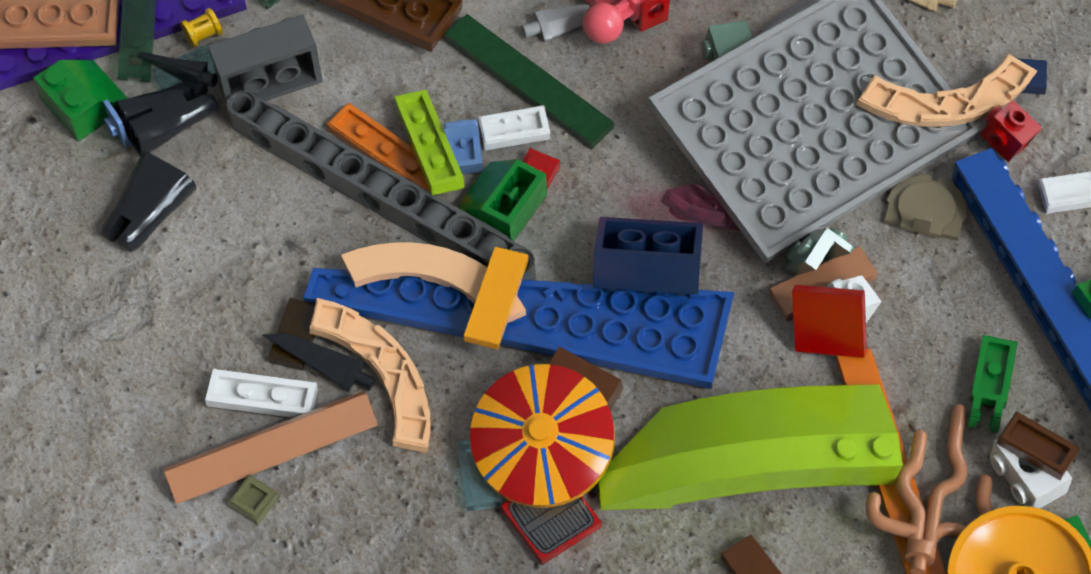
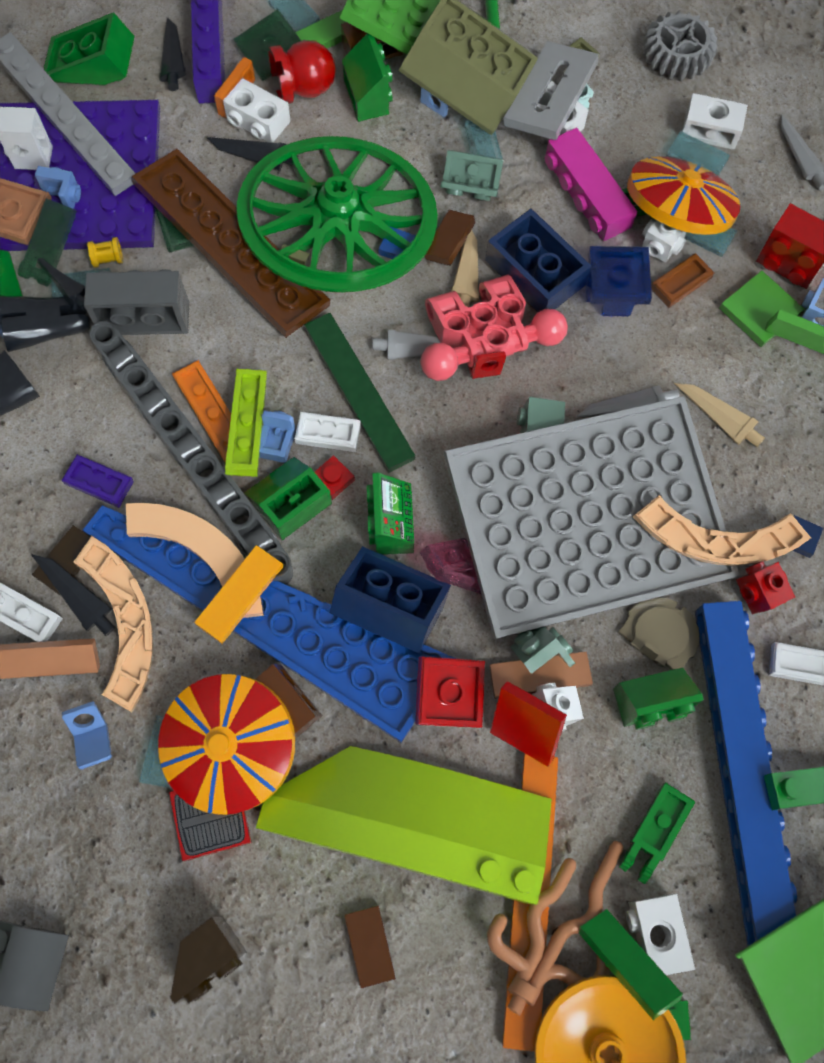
camera: 15 degrees right, 10 degrees up
(295, 249) = (97, 481): none -> dark purple plate
(399, 485) = (90, 739): none -> medium blue bracket
(614, 181) = (390, 515): none -> green slope
(741, 323) = (450, 692): none -> red tile
(944, 263) = (655, 697): none -> green slope
(1009, 491) = (630, 964): none -> green tile
(1038, 445) = (674, 925): reddish brown tile -> none

